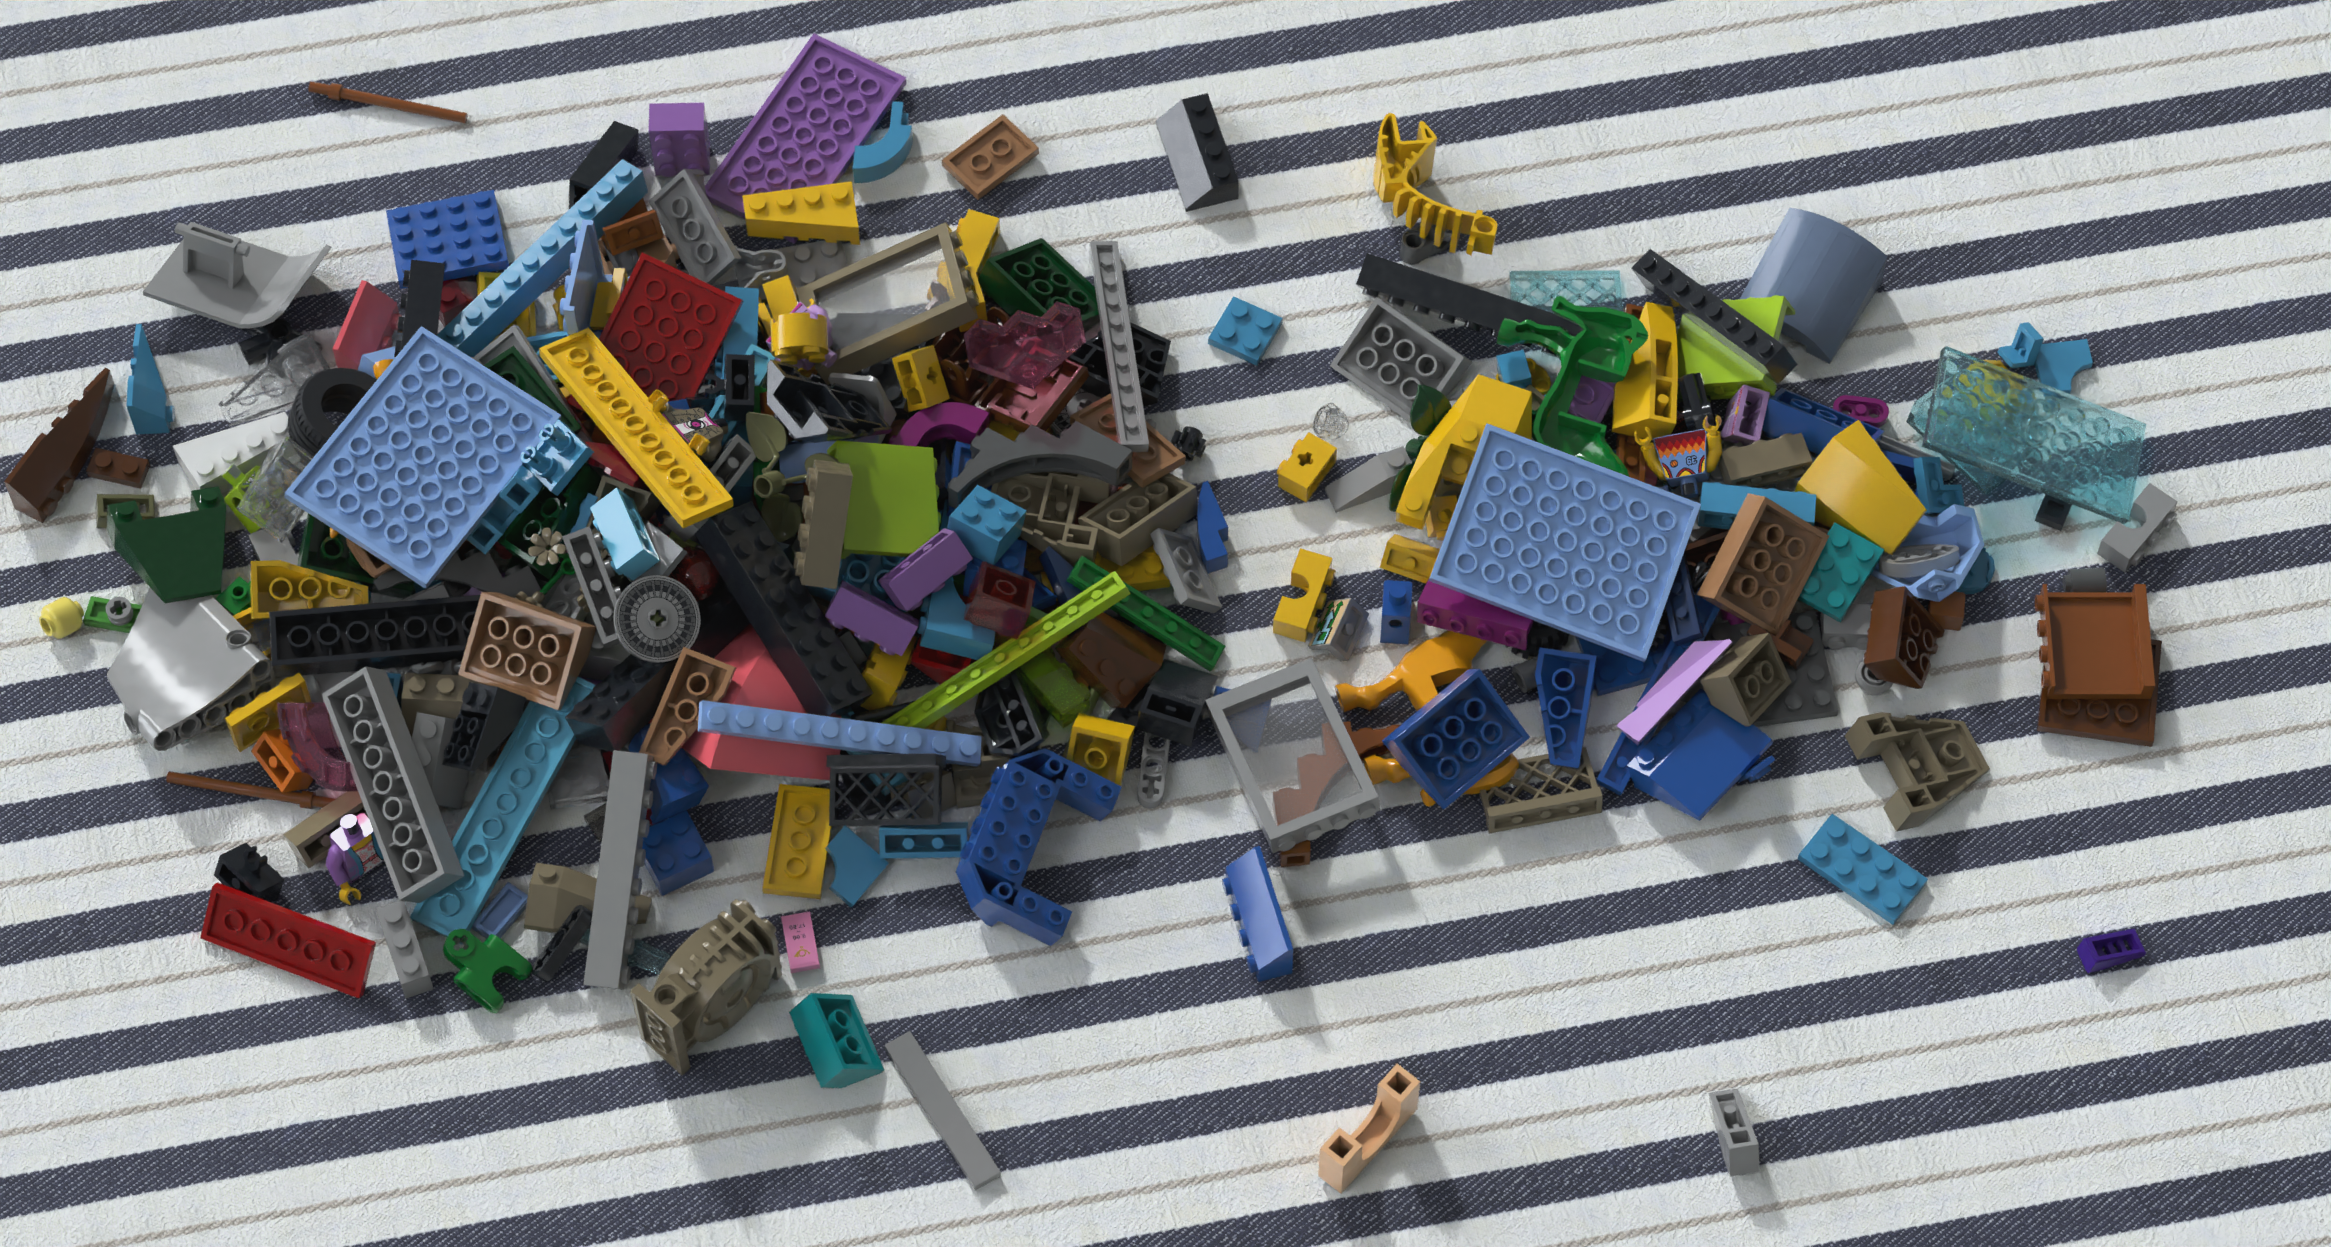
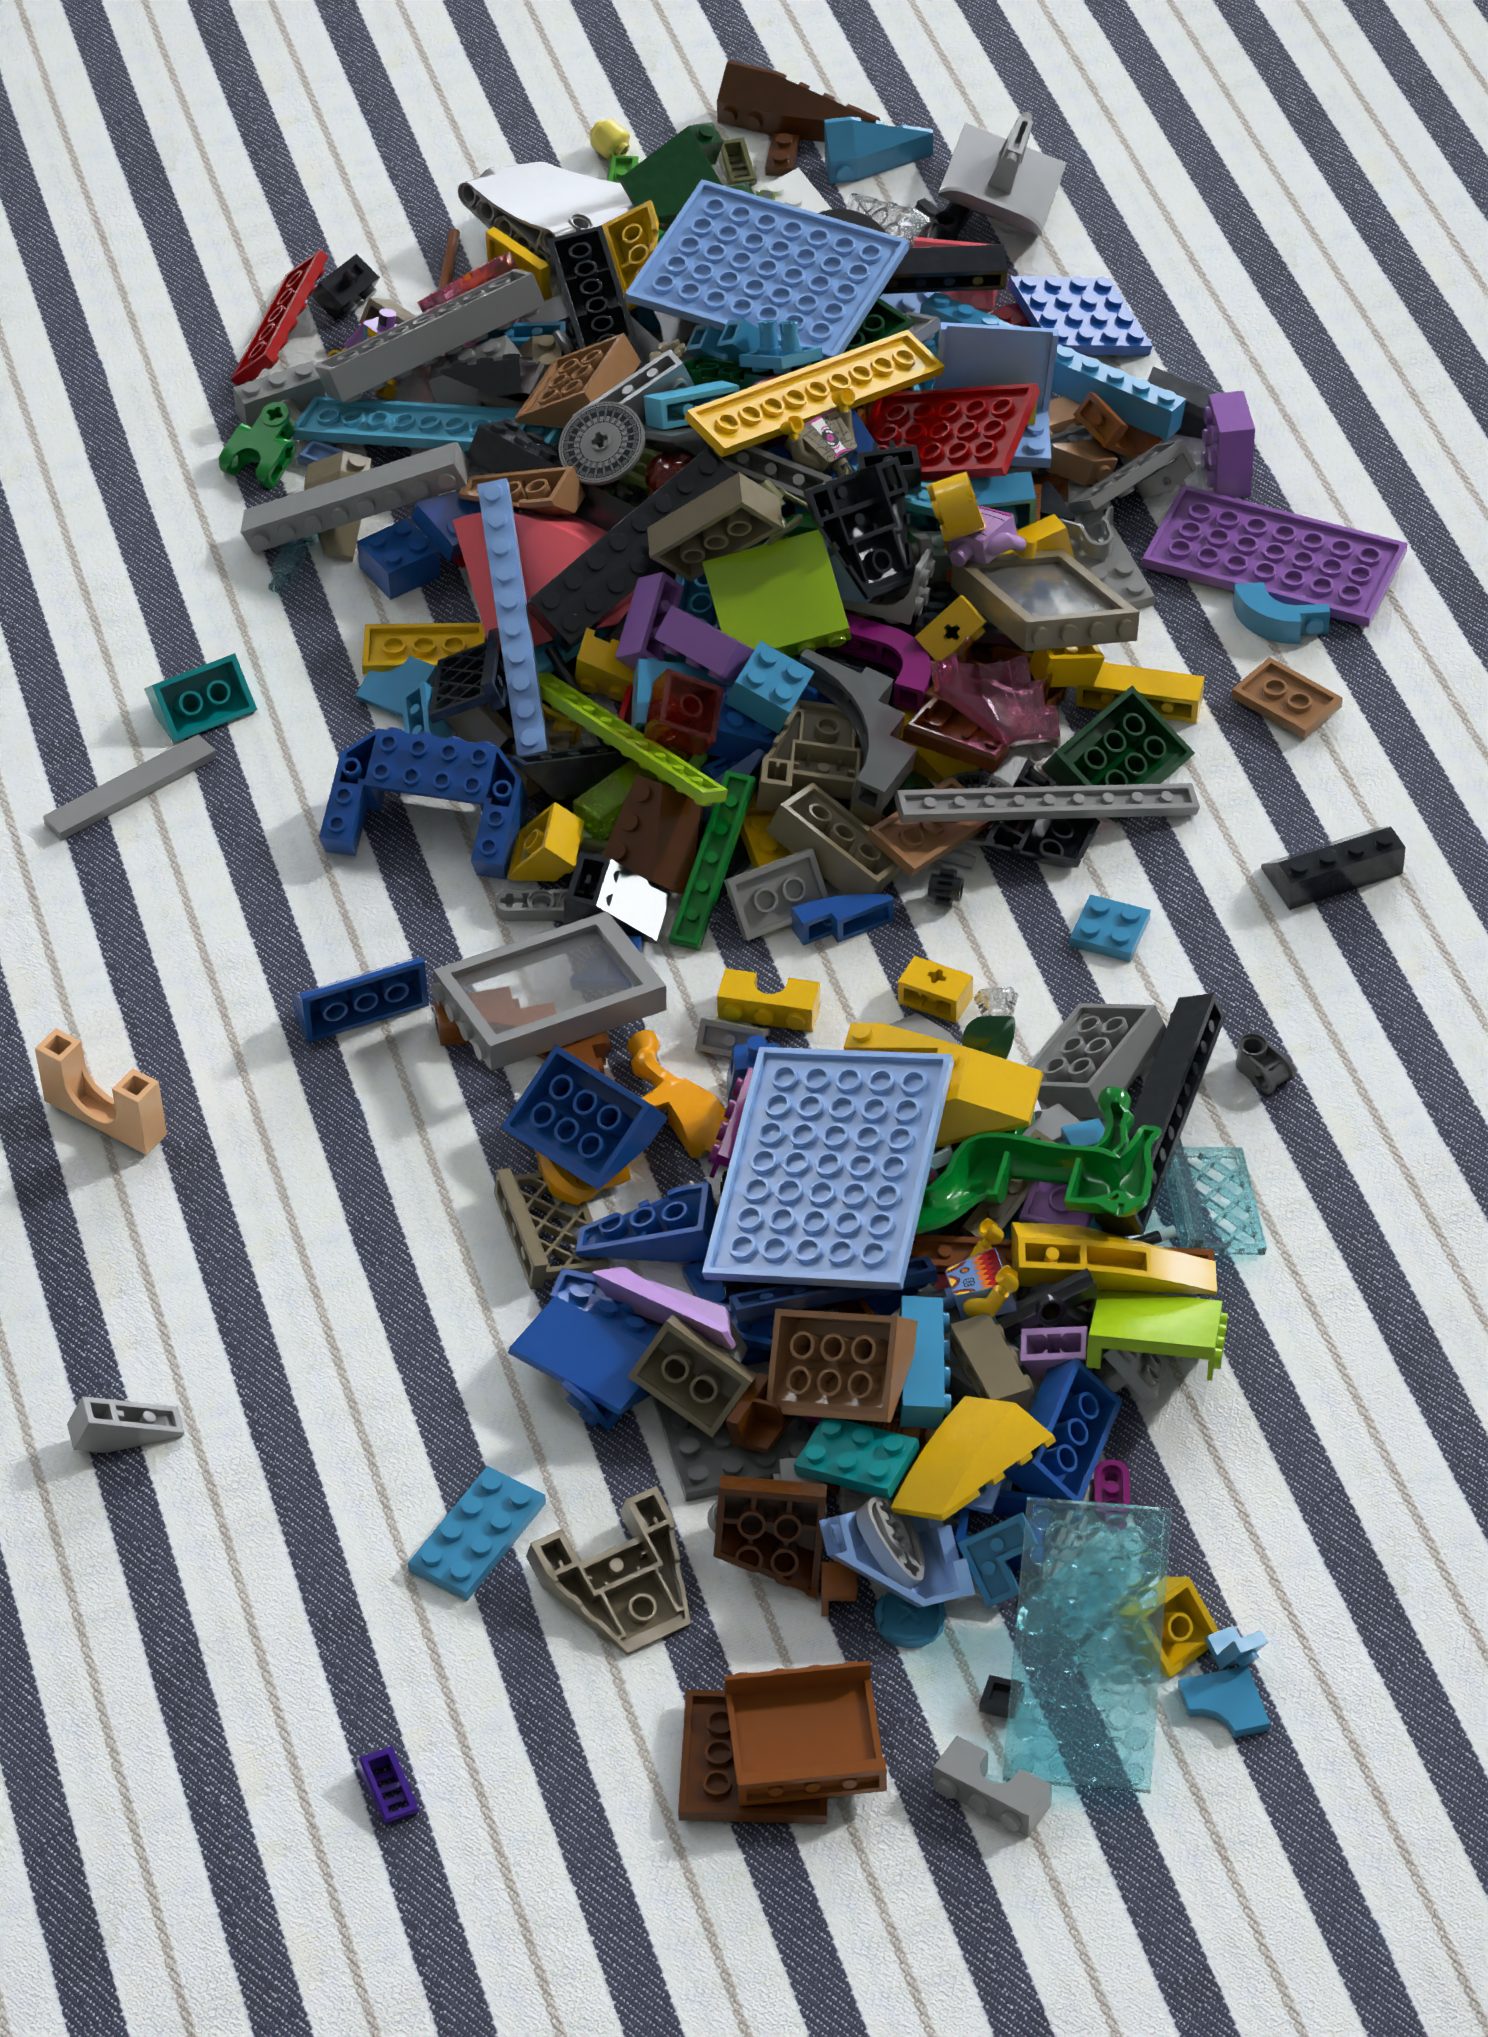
camera: 85 degrees right, 15 degrees down
(121, 619) = (618, 167): light grey bush -> none
(338, 92) = (1243, 230): dark orange bar -> none
(562, 943) = (278, 488): black beam -> none
(708, 984) = (231, 572): dark tan brick -> none
(800, 942) = (312, 665): bright pink tile -> none
(804, 213) = (1166, 554): yellow wedge -> none
(1406, 165) = (1347, 1013): yellow piece -> none
(1714, 316) = (1181, 1296): black brick -> none
(1823, 274) = (1273, 1427): sand blue windscreen -> none
(2085, 580) = (901, 1734): dark grey brick -> none

